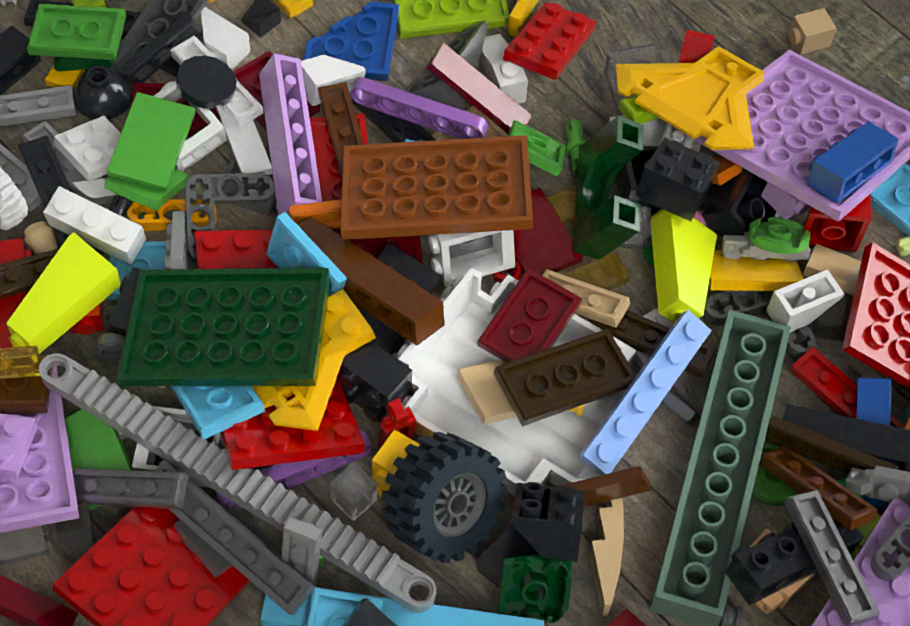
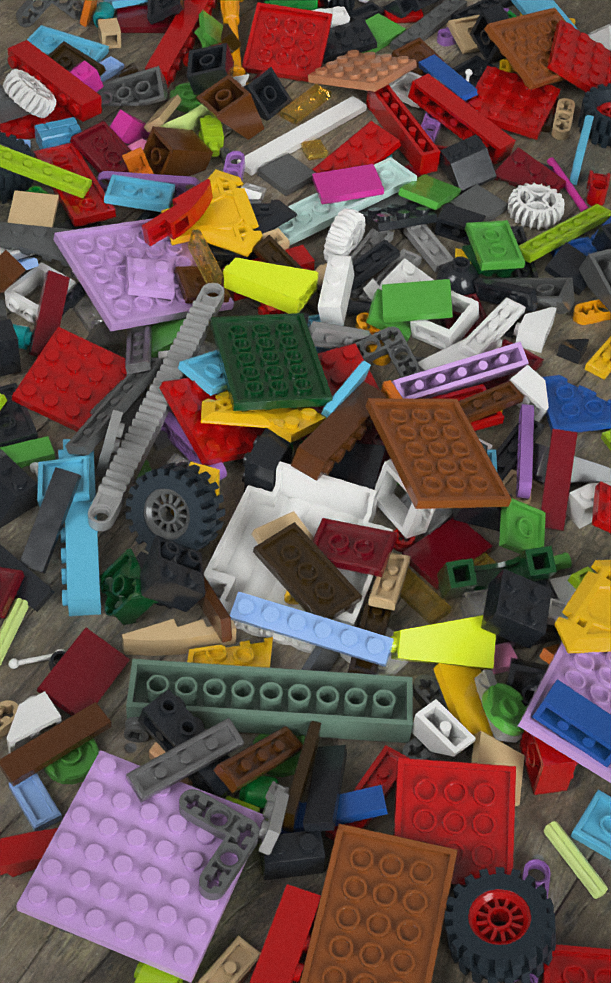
camera: 75 degrees right, 10 degrees down
(206, 81) = (479, 314): black tile -> none
(398, 419) = (230, 480): red hinge -> none
(652, 510) = (243, 655): none -> yellow wing

